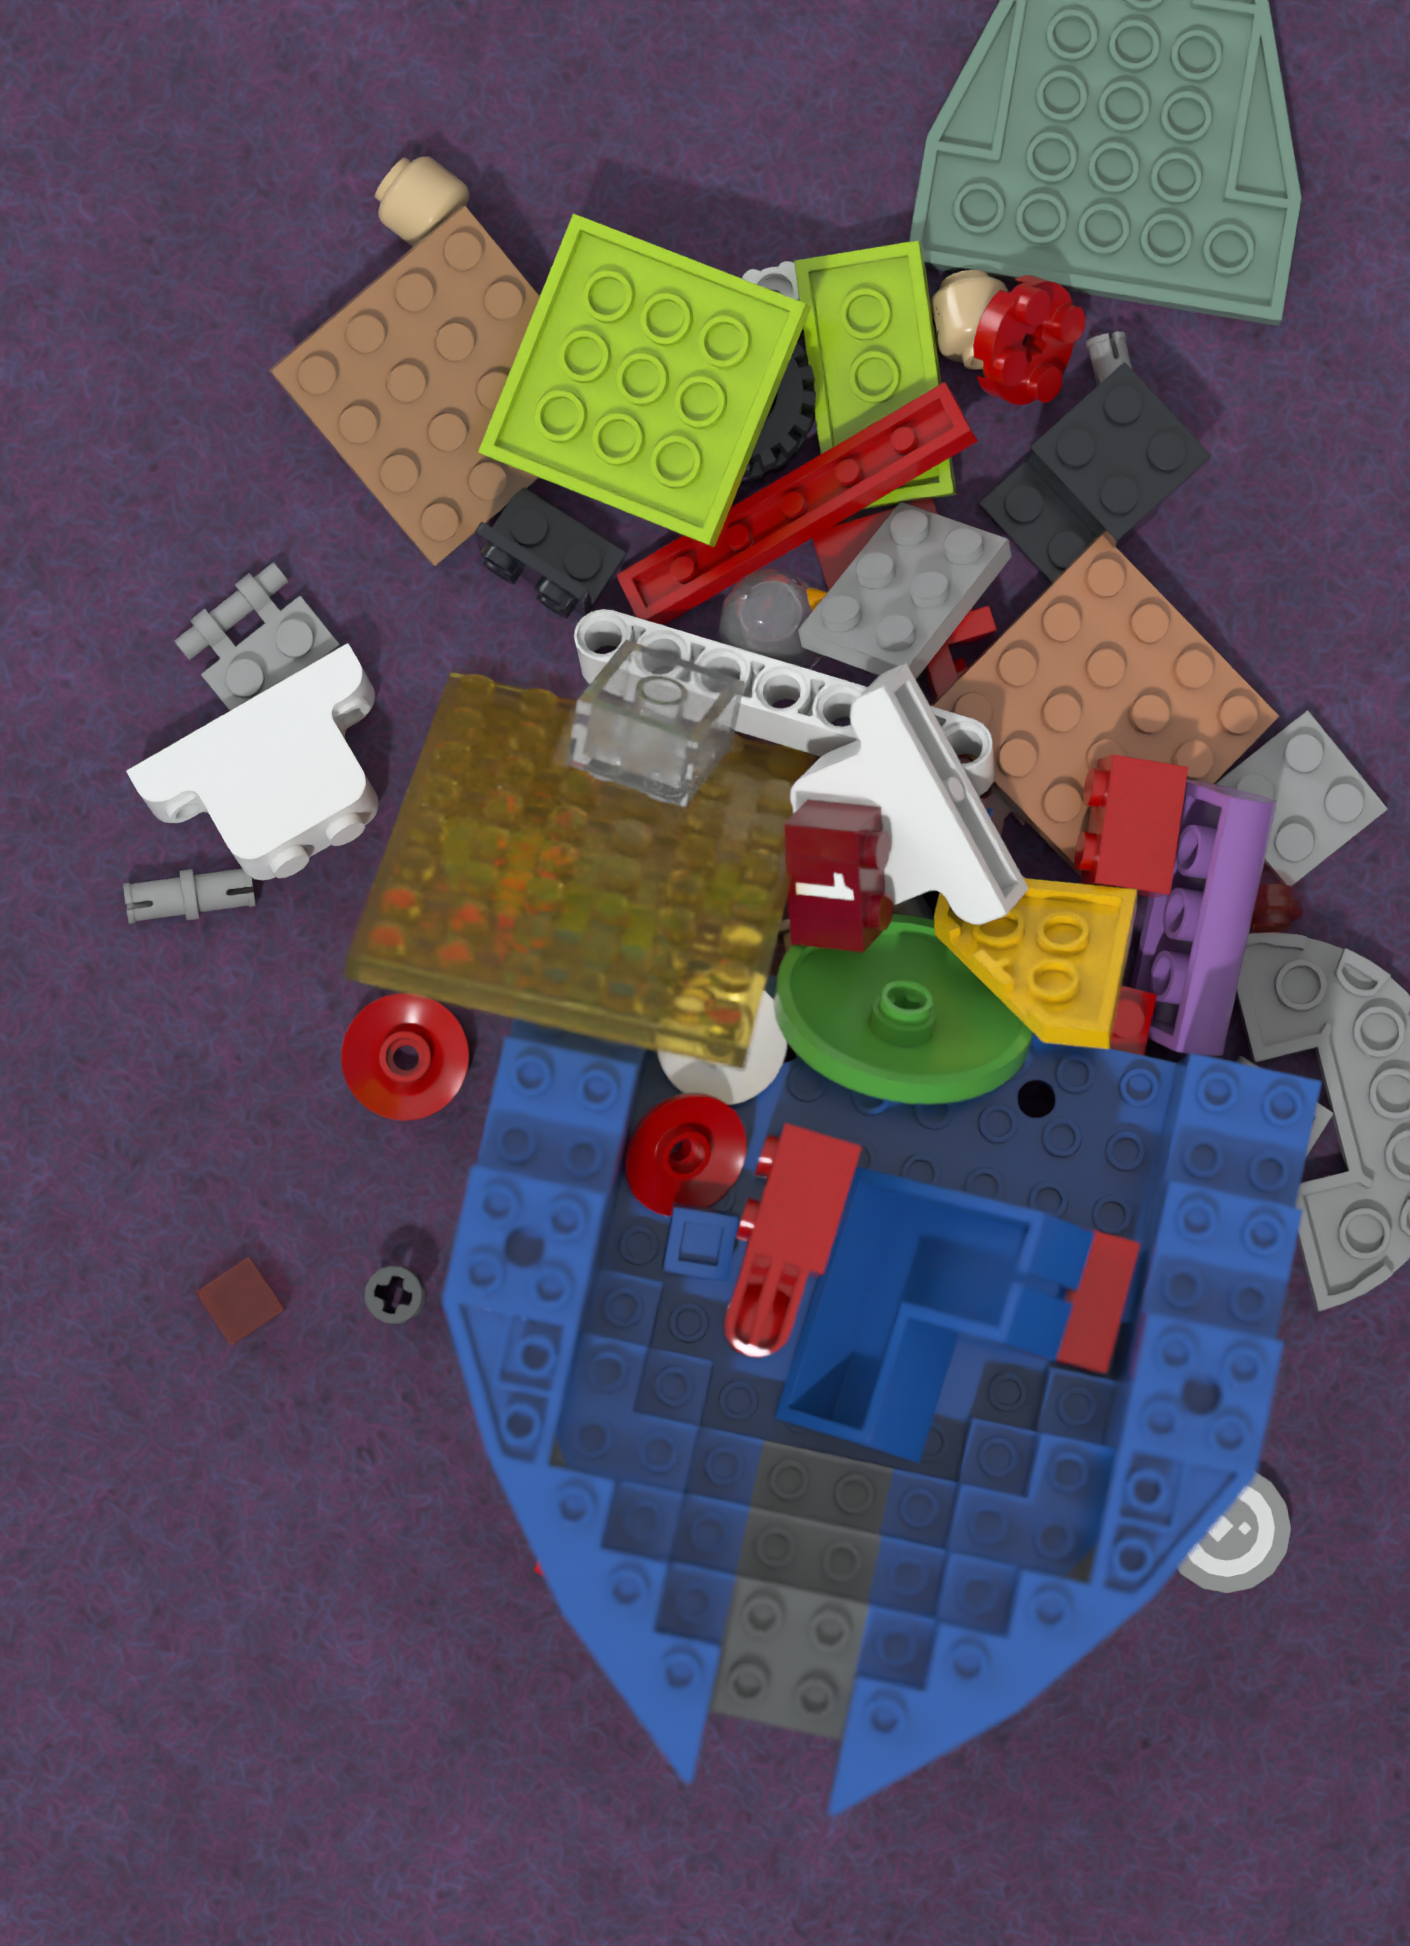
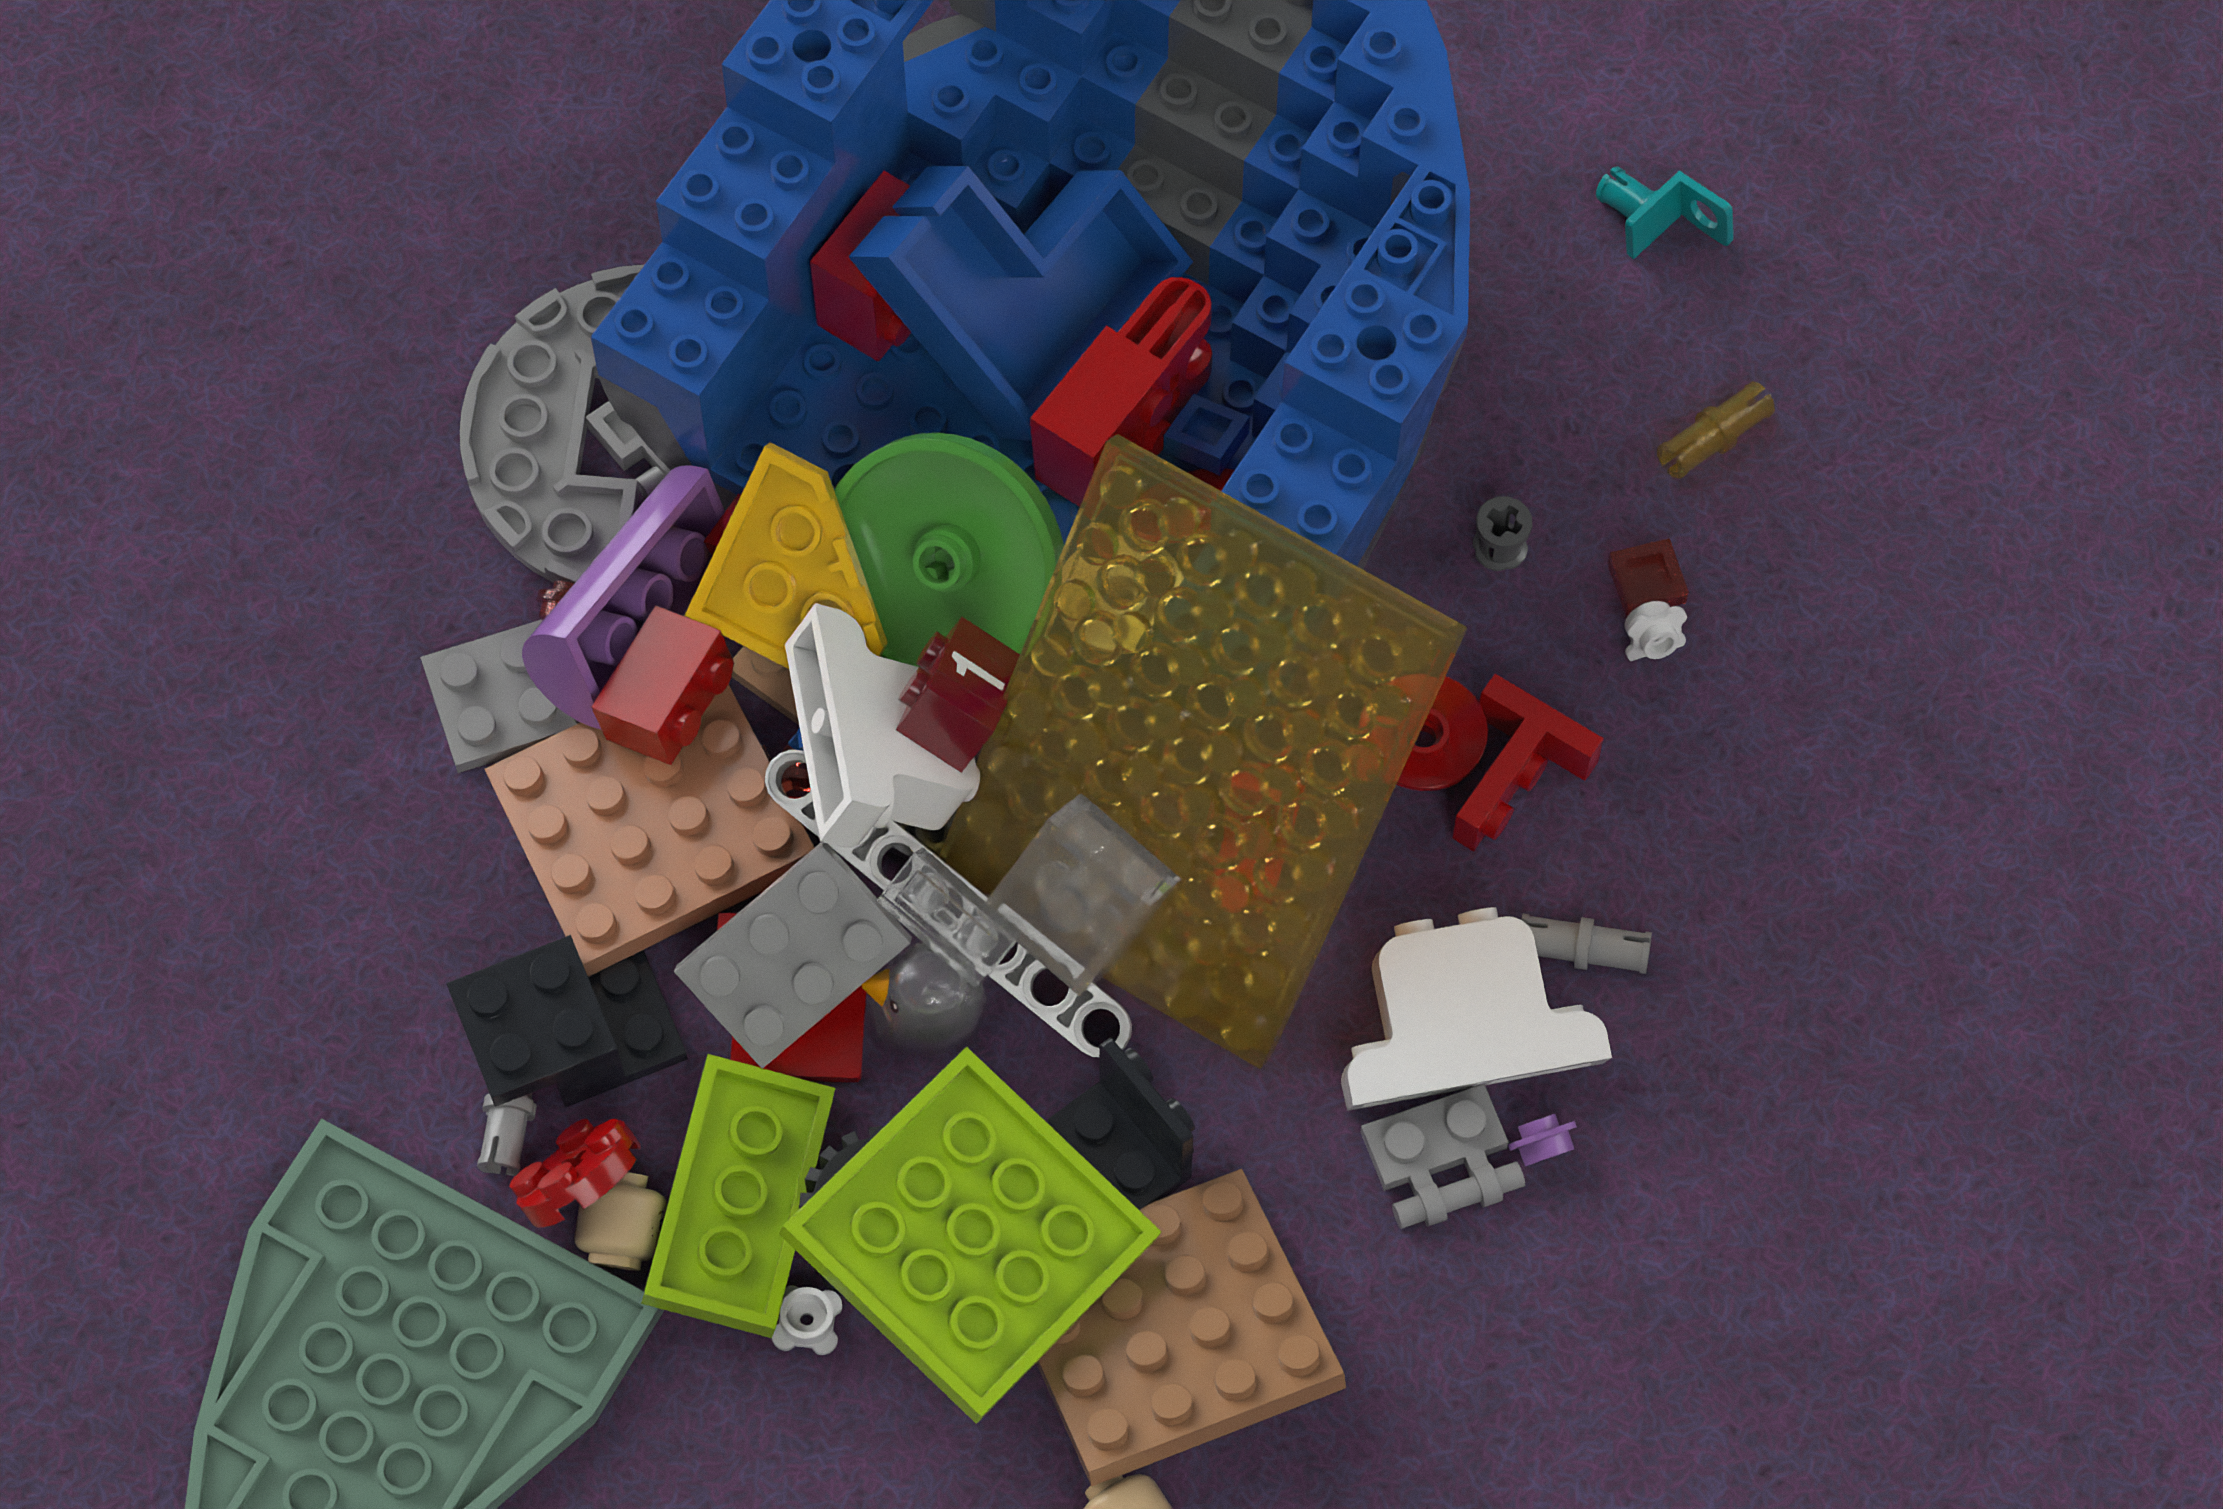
camera: 165 degrees left, 20 degrees down
(168, 684) = (1543, 1139): none -> medium lavender plate
(217, 1242) = (1654, 630): none -> white plate
(221, 1491) = (1715, 430): none -> clear yellow pin
(303, 1055) = (1535, 734): none -> red bracket
(358, 1724) = (1654, 211): none -> teal bracket
(769, 661) = (949, 917): none -> clear plate
(800, 506) = (845, 1086): red plate -> none

